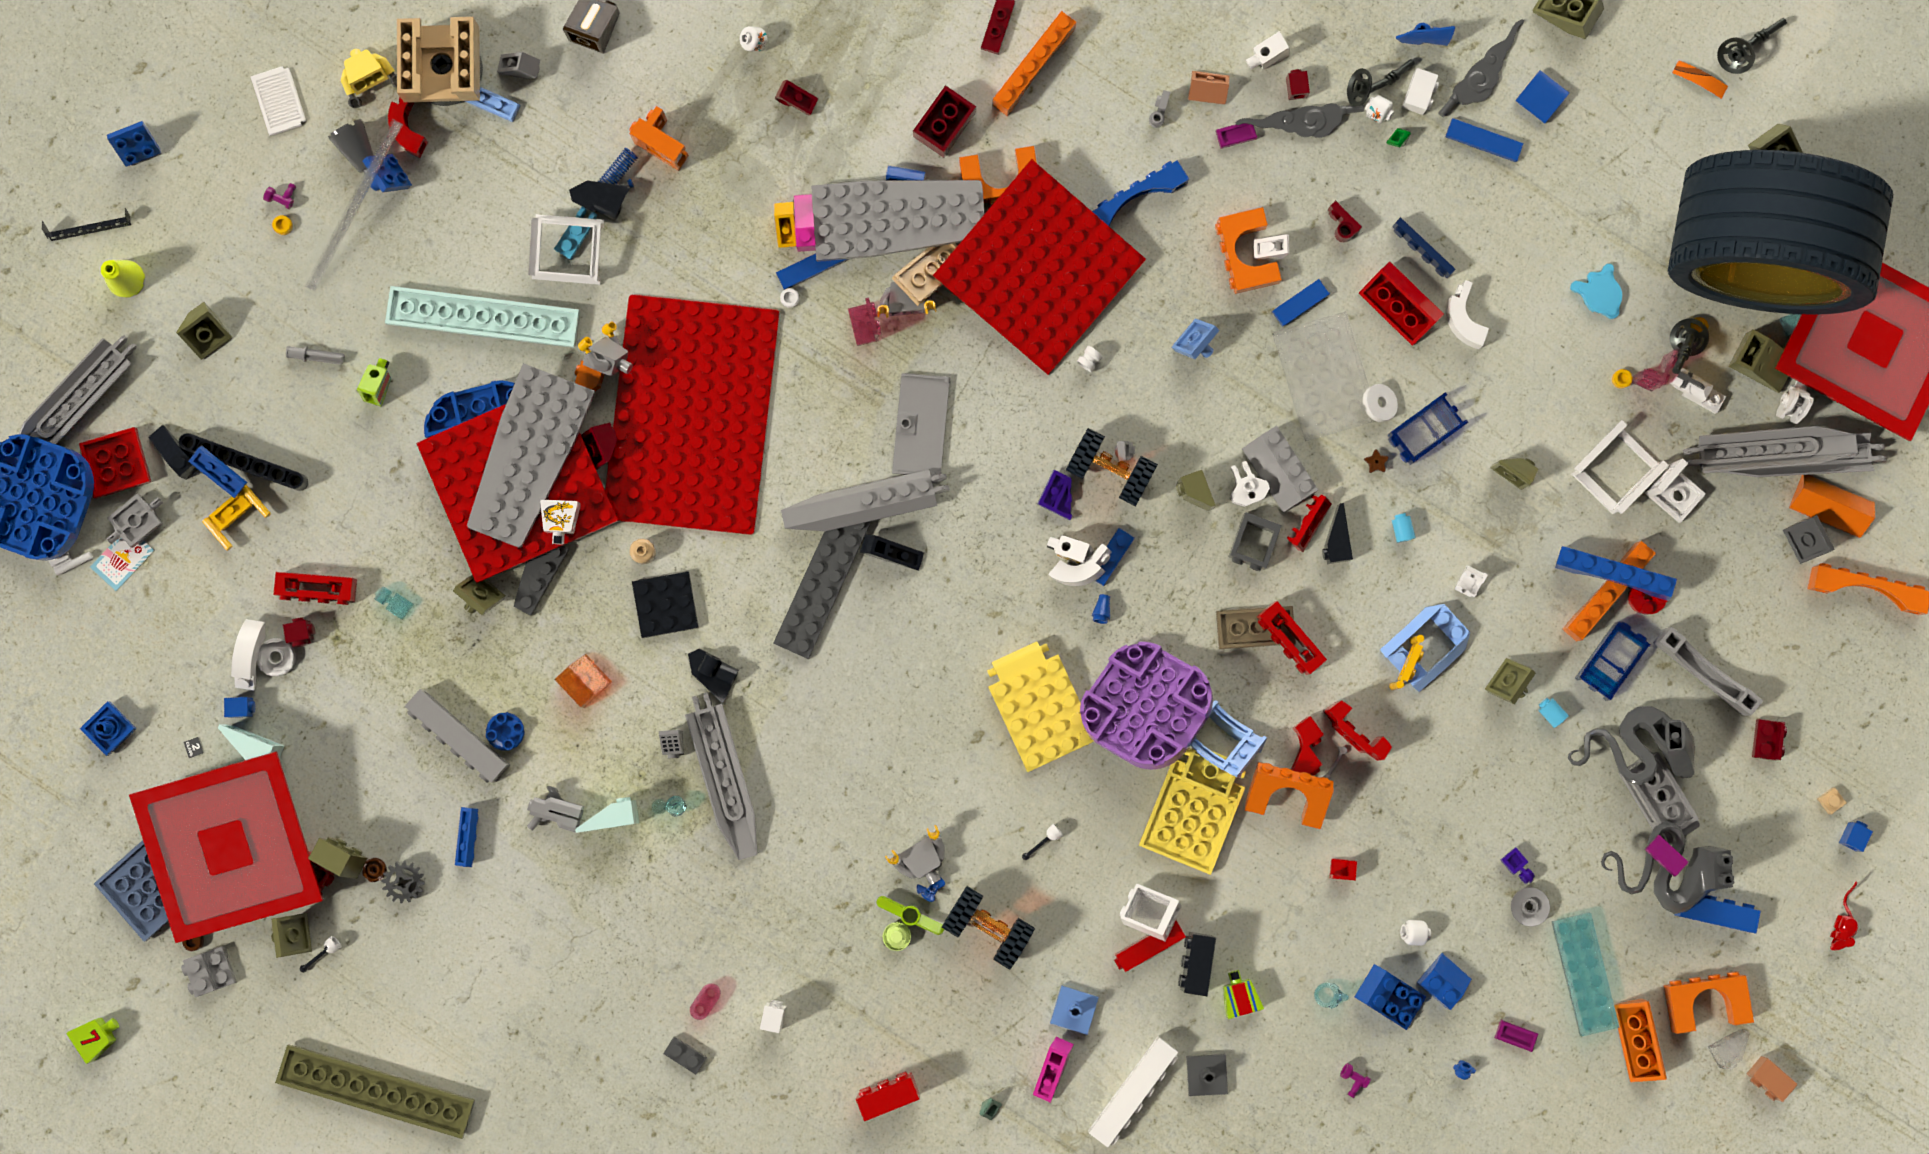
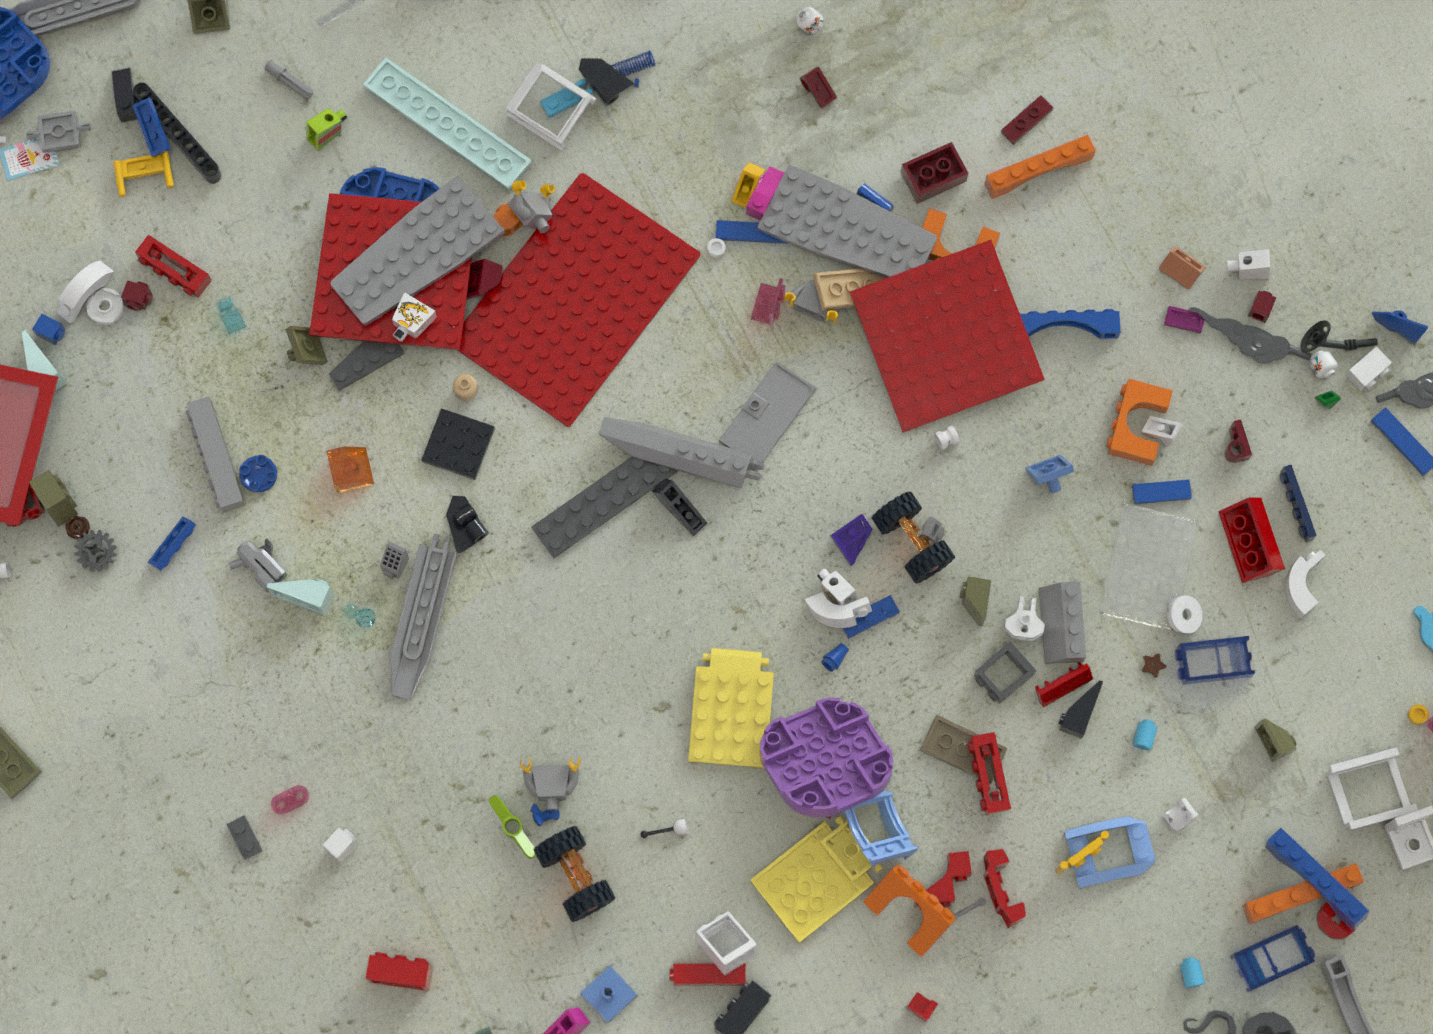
camera: 30 degrees right, 10 degrees down
(116, 462) = (72, 76): red plate -> none
(651, 138) = (675, 53): orange brick -> none
(896, 936) = (489, 838): yellowish green plate -> none
(1161, 103) = (1133, 258): light grey plate -> none
(1510, 681) = (1168, 923): olive tile -> none

